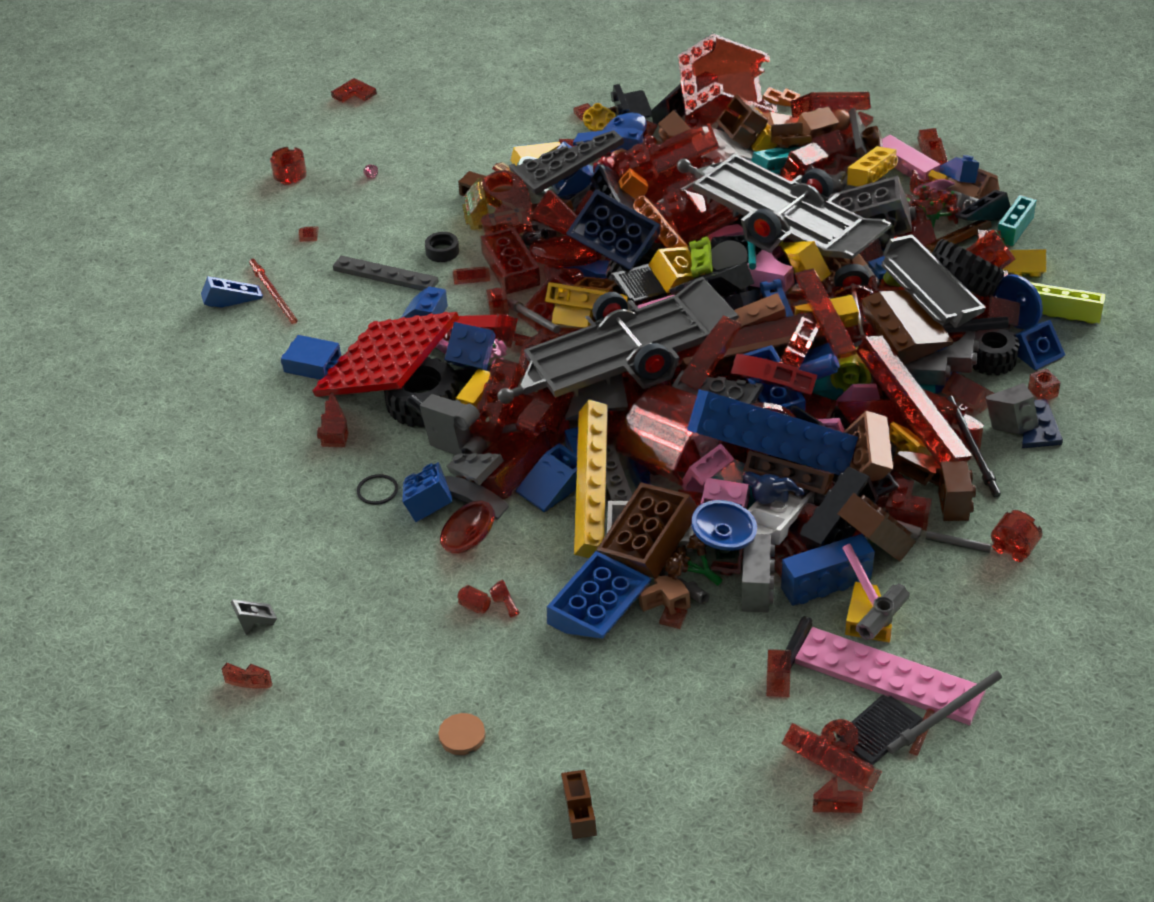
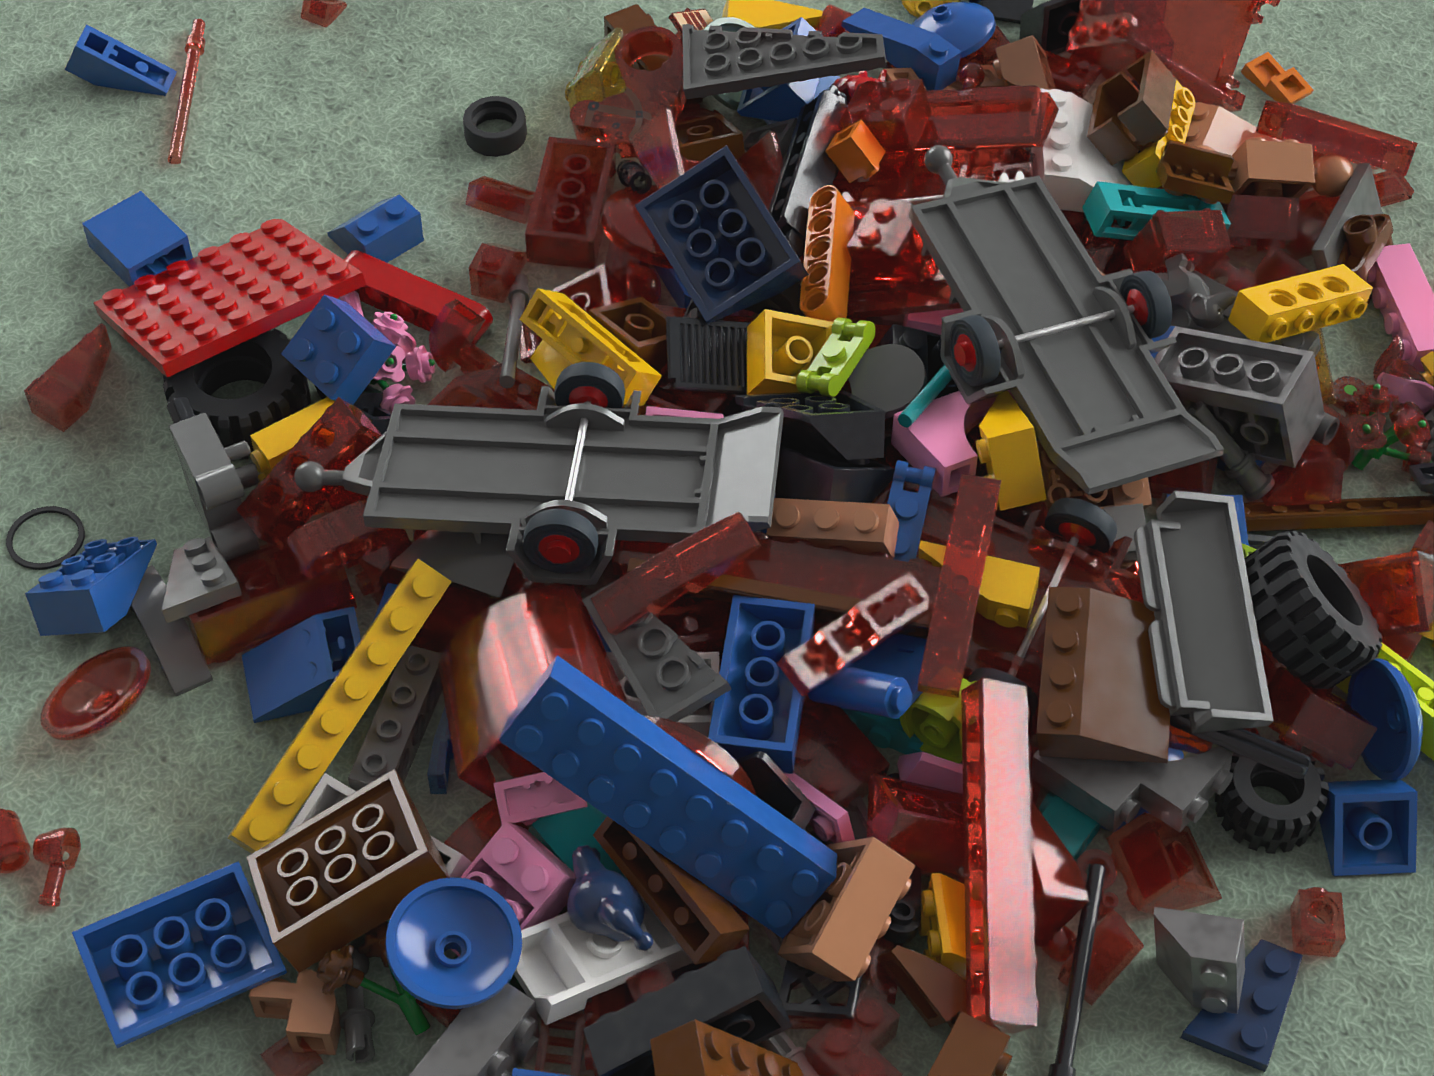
camera: 25 degrees right, 10 degrees up
(384, 273) = (376, 137): dark grey plate -> none
(774, 373) = (760, 674): red slope -> none

